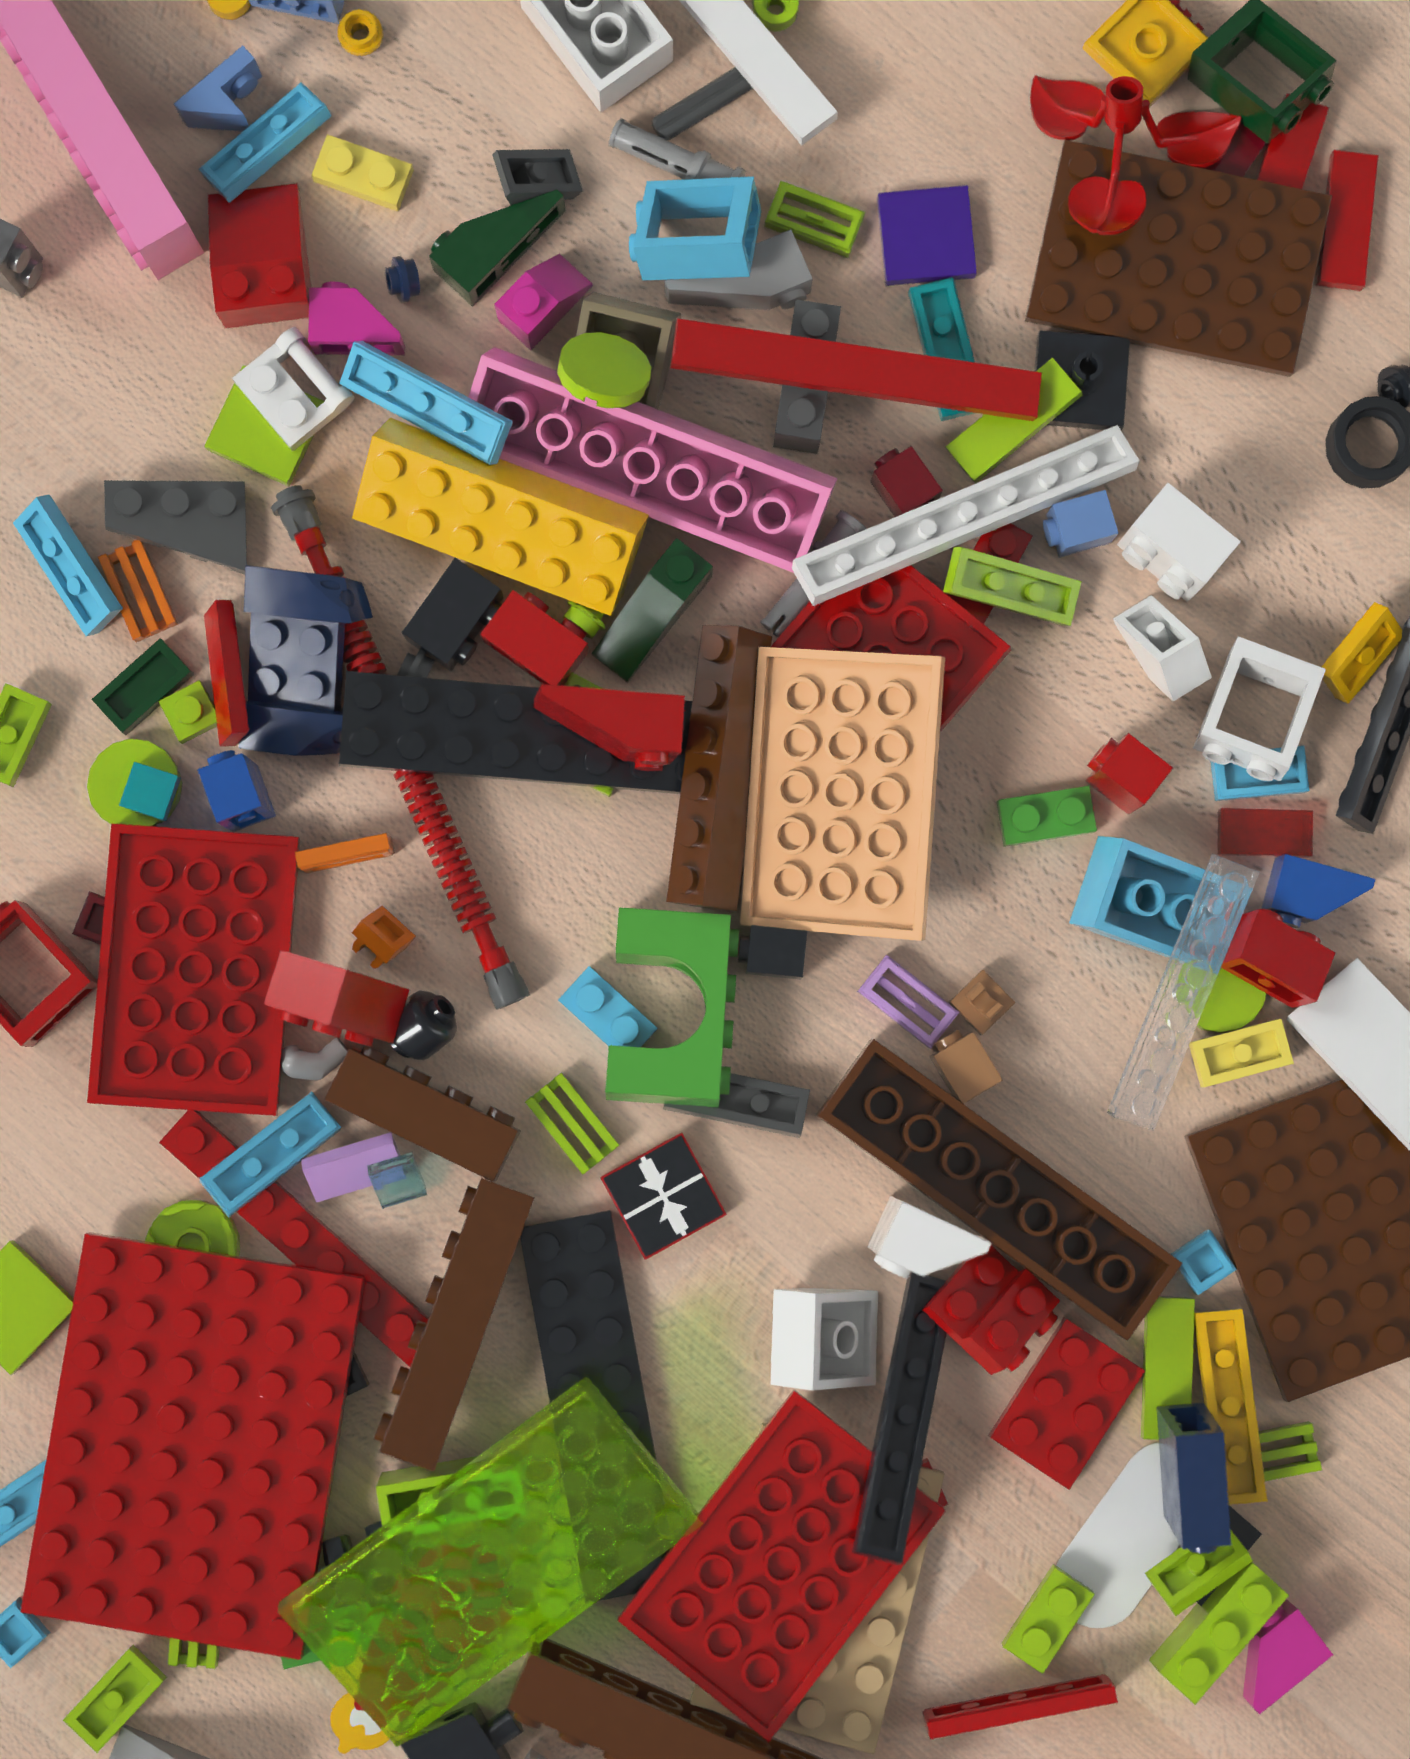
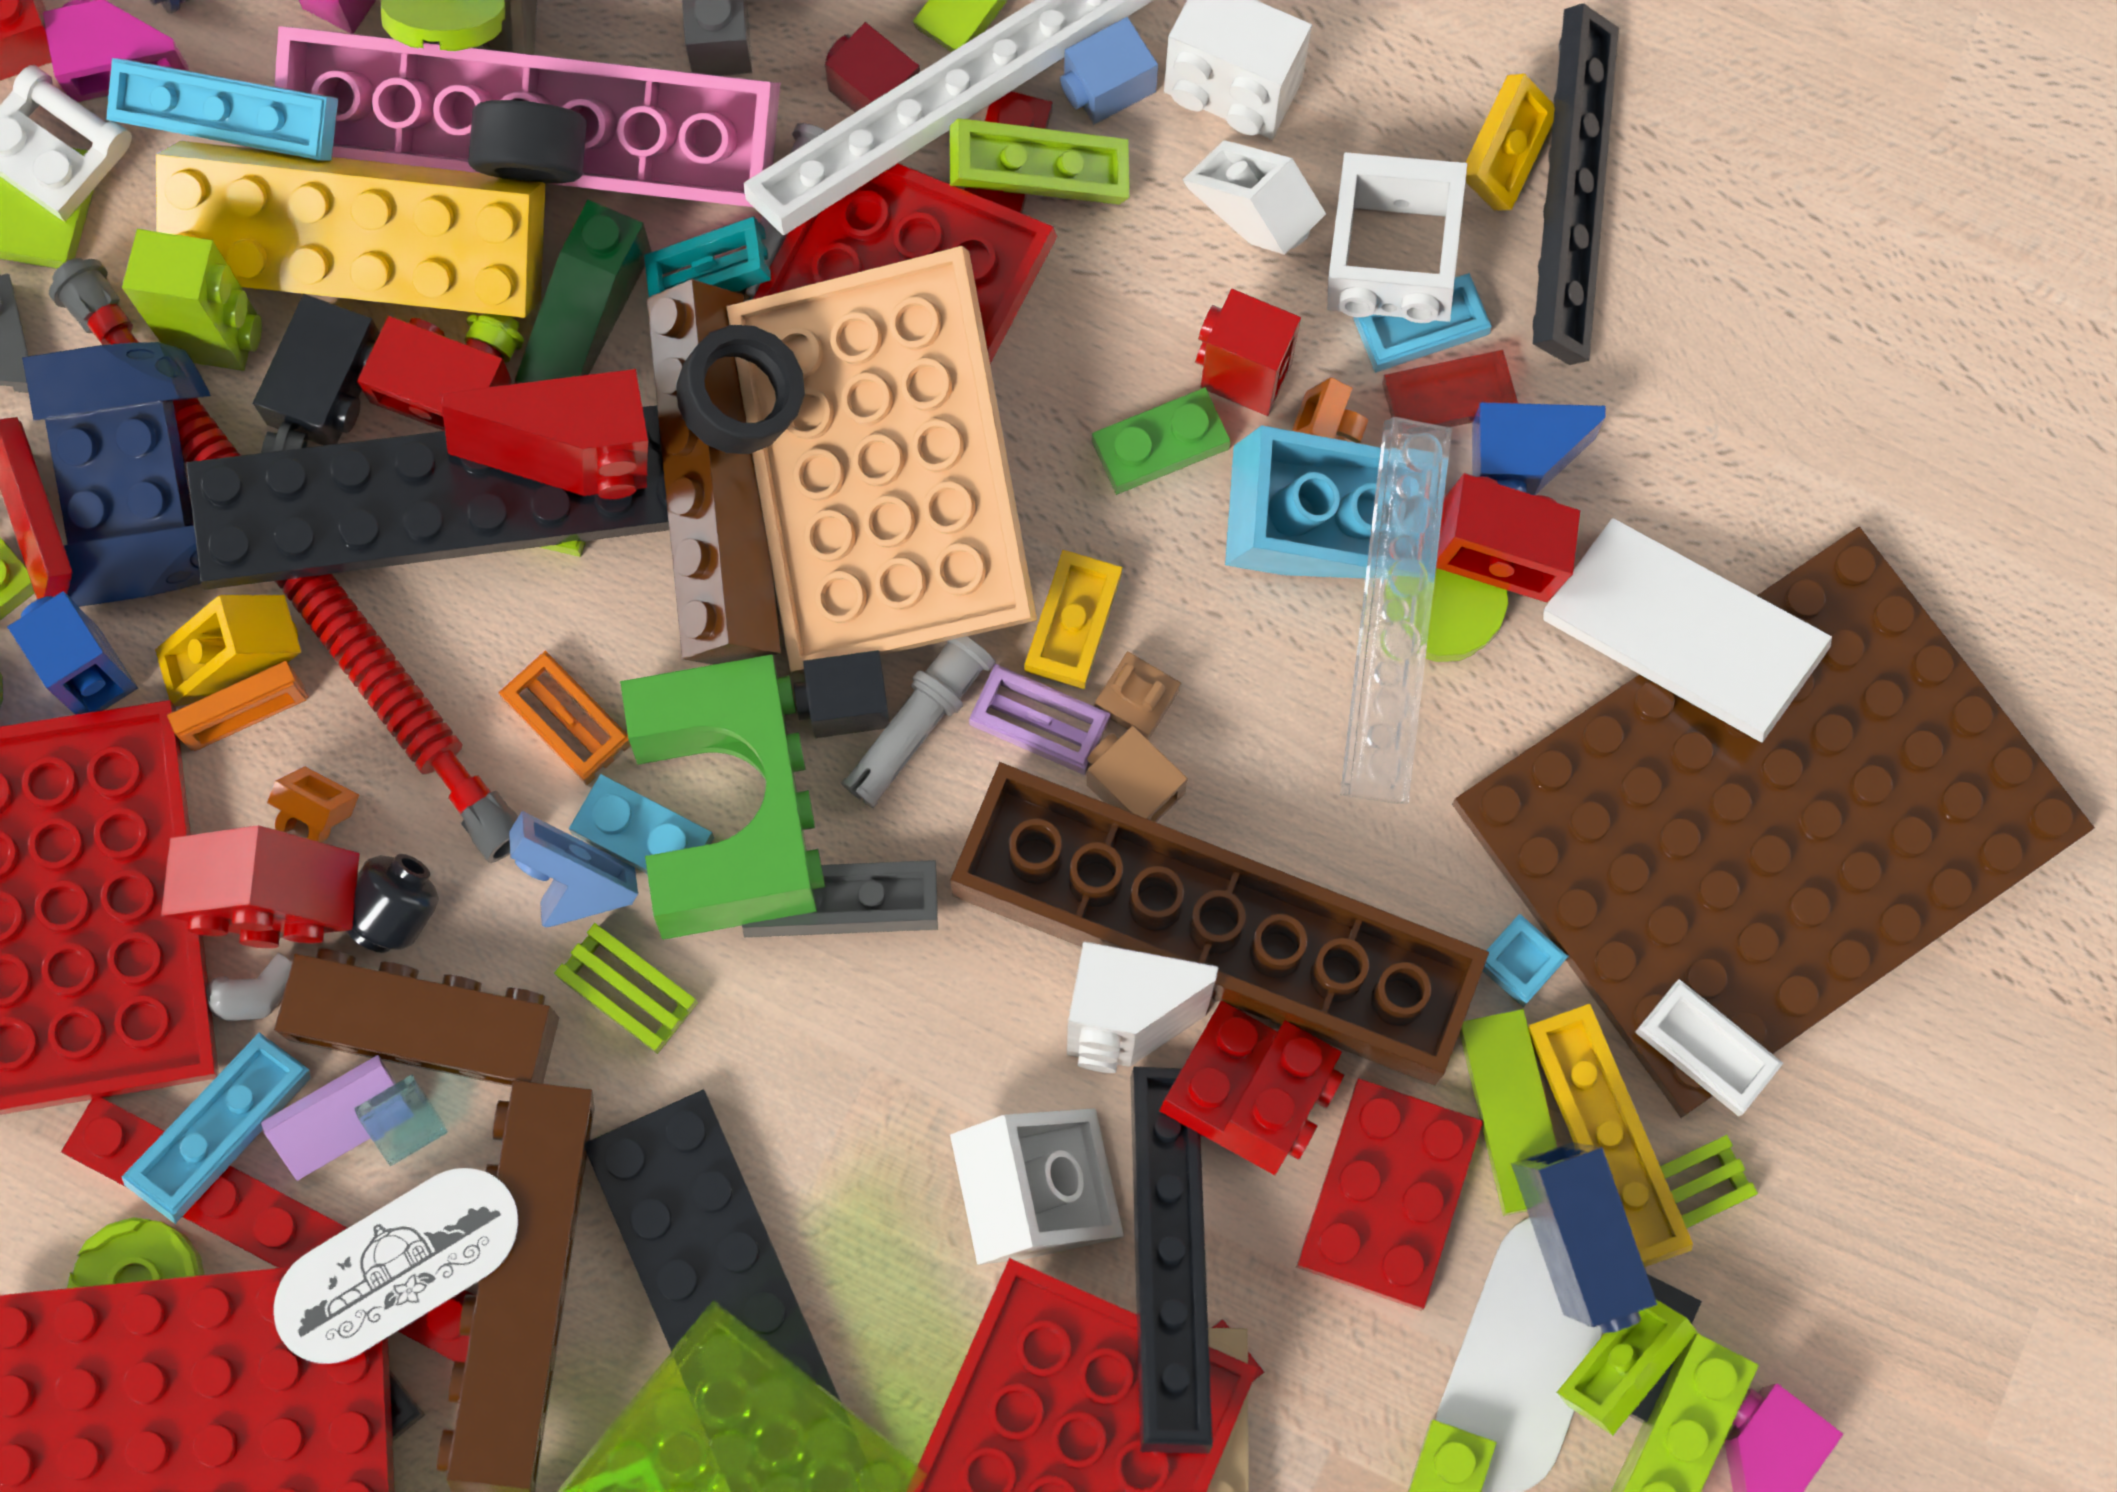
camera: 10 degrees left, 10 degrees down
(346, 807) = (226, 645): none -> yellow slope
(374, 1290) = (395, 1265): none -> white sticker
(375, 549) = (192, 298): none -> lime brick
(555, 1037) = (583, 876): none -> medium blue slope
(592, 949) = (601, 754): none -> orange tile
(643, 493) = (527, 141): none -> black tyre
(663, 1196) = (772, 1053): black tile -> none
(787, 606) = (728, 272): none -> teal tile
(788, 714) = (768, 355): none -> black tyre
(839, 967) = (935, 694): none -> light grey pin
(950, 936) = (1073, 619): none -> yellow plate
(1169, 832) = (1325, 413): none -> orange tile
(1241, 1053) = (1495, 674): light yellow plate -> none
(1317, 1363) = (1709, 1048): none -> white tile

